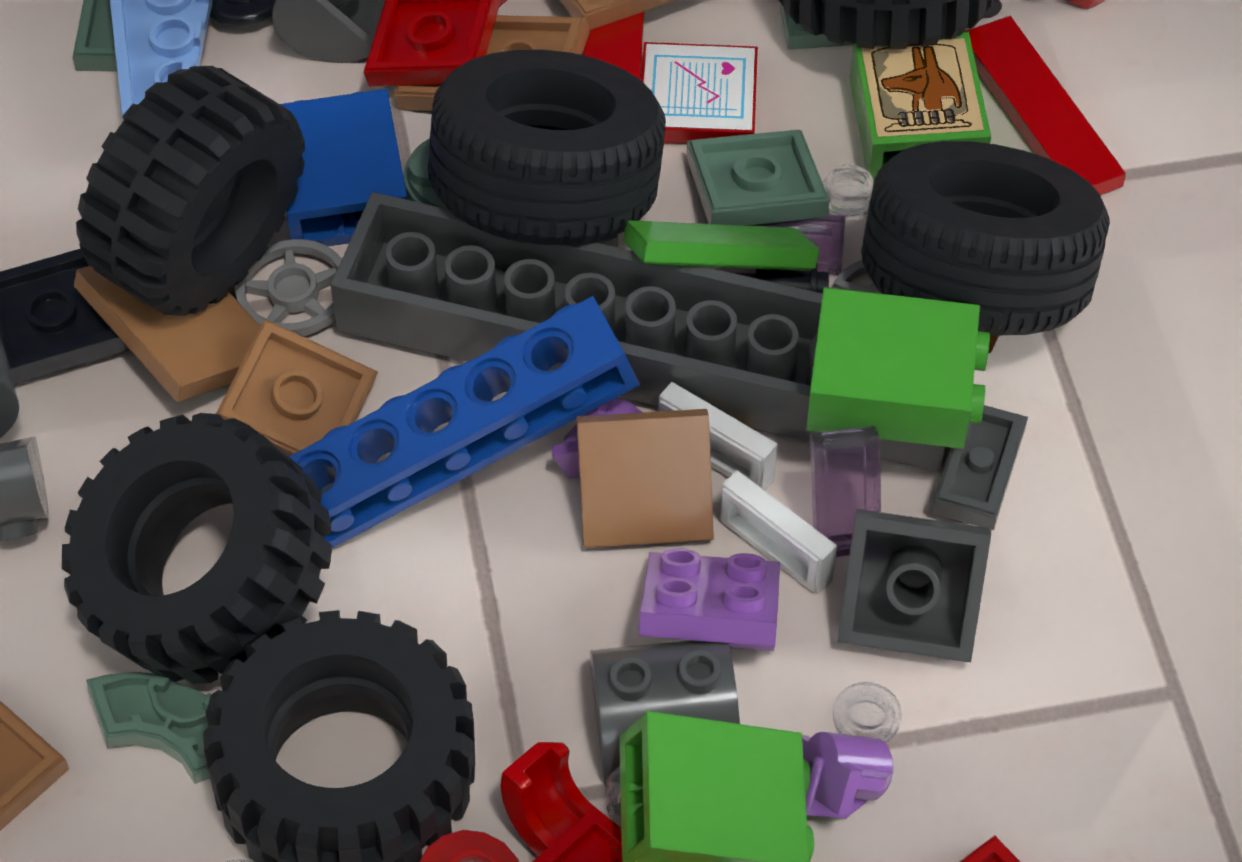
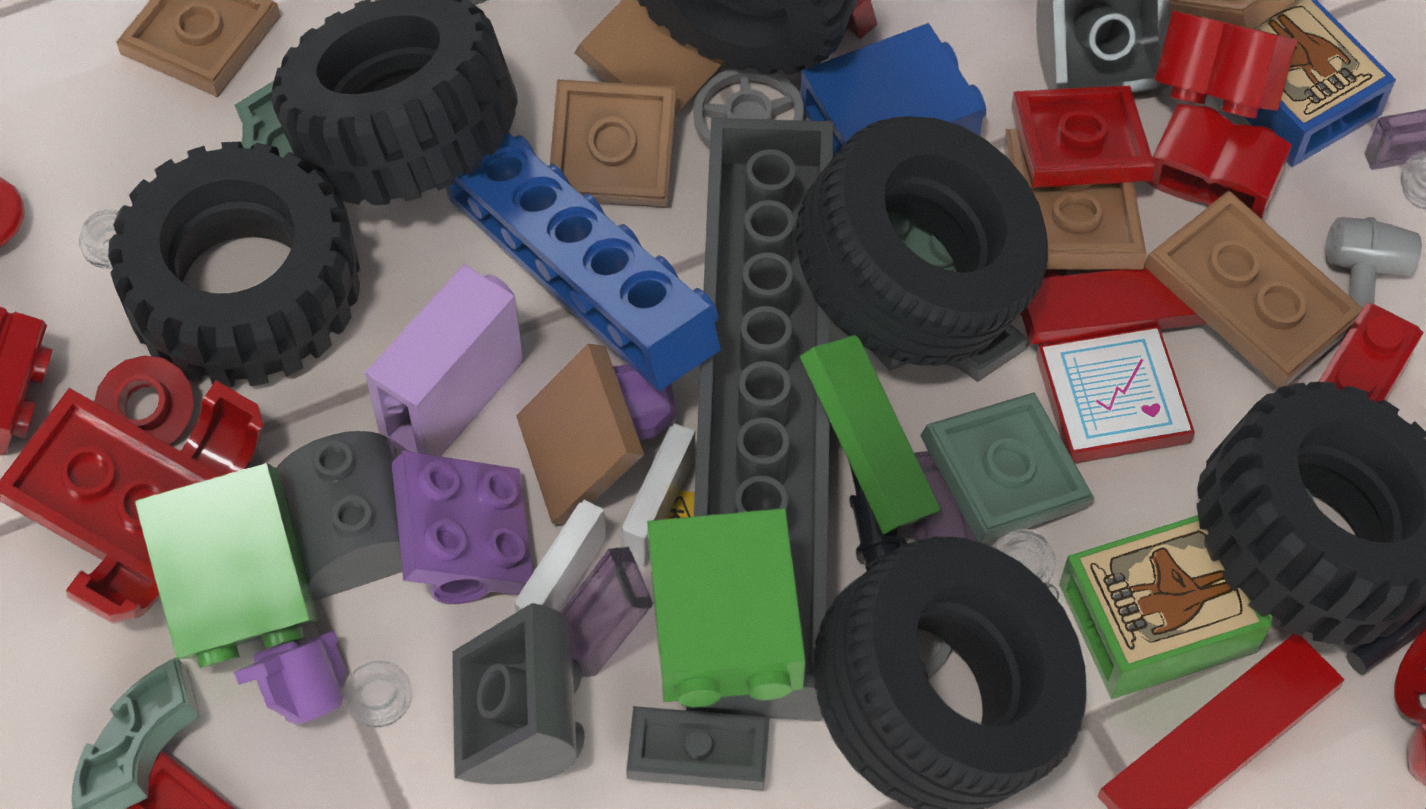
camera: 75 degrees right, 5 degrees up
(538, 570) = (446, 363): none -> lavender brick

